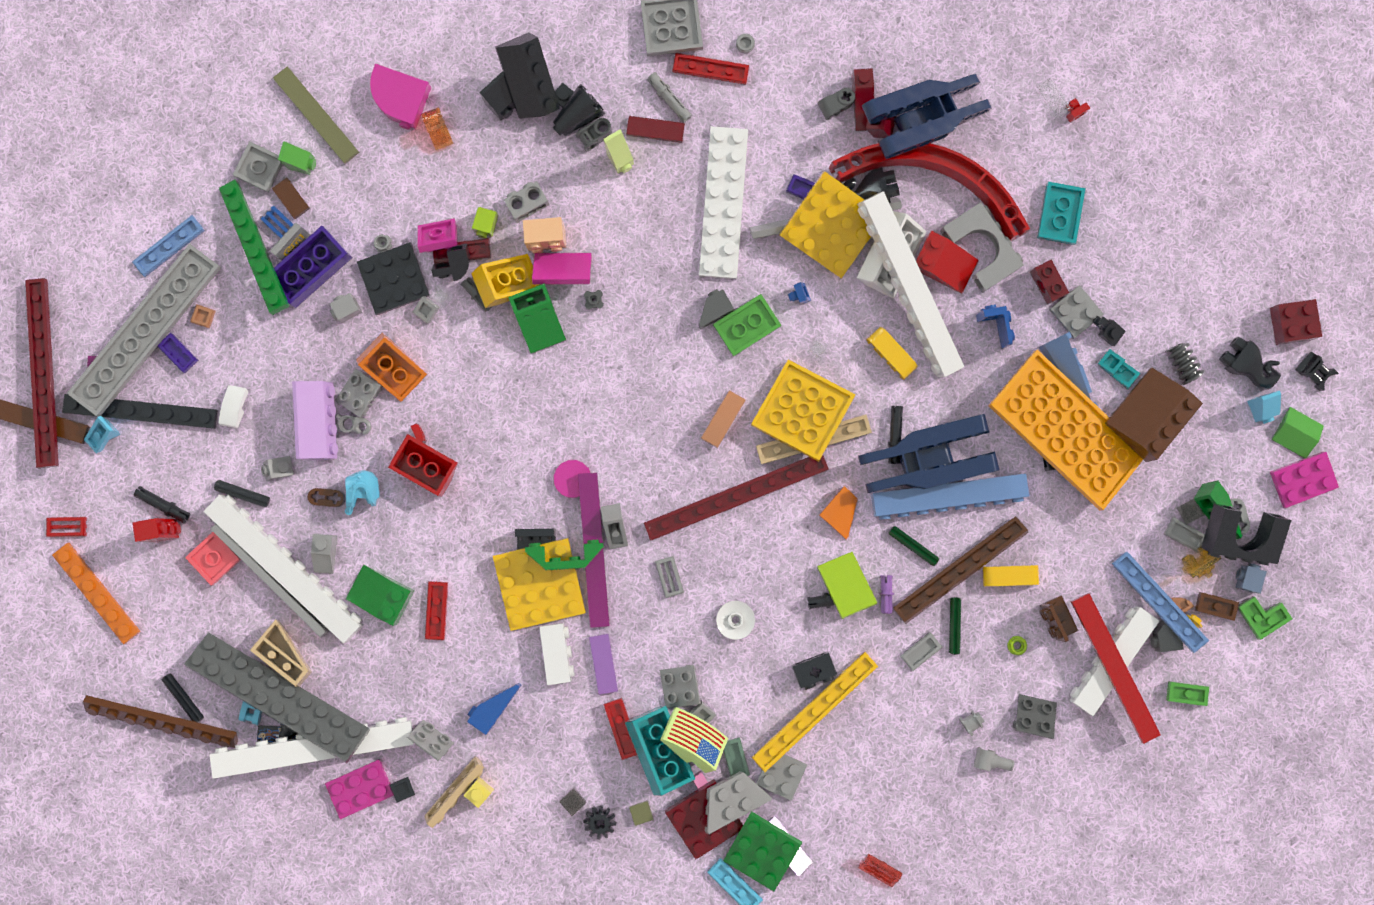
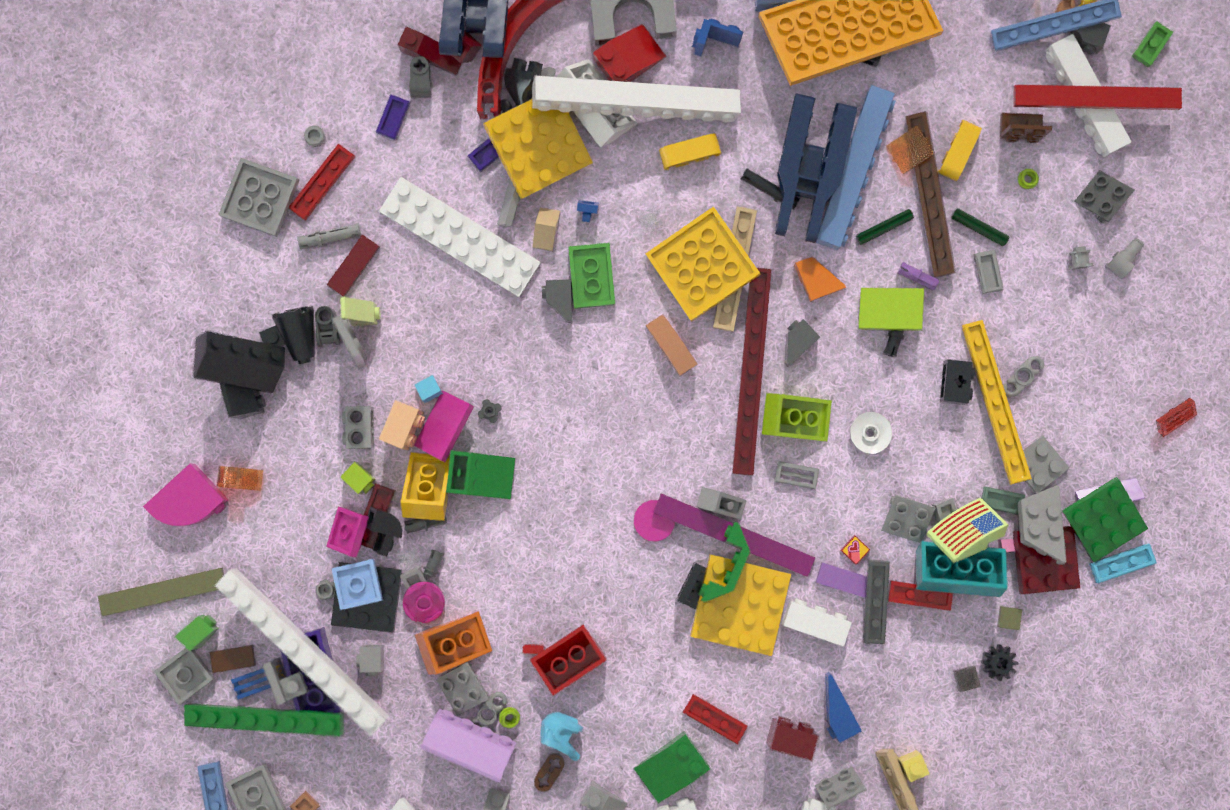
camera: 65 degrees left, 0 degrees up
(291, 256) = (293, 686): none -> light grey plate
(322, 248) = (302, 651): none -> white brick
(348, 442) = (512, 722): none -> lime plate
(398, 265) = (357, 584): none -> light blue plate
(412, 326) = (423, 602): none -> dark pink tile
(447, 318) = (433, 563): none -> dark grey pin
(451, 680) = (792, 738): none -> dark red brick
(586, 241) = (428, 389): none -> medium azure tile
(590, 155) = (351, 341): none -> light grey plate
(598, 694) = (876, 601): none -> dark grey tile
(632, 656) = (855, 550): none -> tile
(716, 552) = (796, 417): none -> lime slope
(766, 268) = (545, 229): none -> tan slope
(781, 522) = (798, 340): none -> dark grey slope
(794, 97) = (392, 117): none -> dark purple tile
(839, 724) = (1026, 366): none -> light grey piece
(989, 534) = (910, 149): none -> clear orange piece

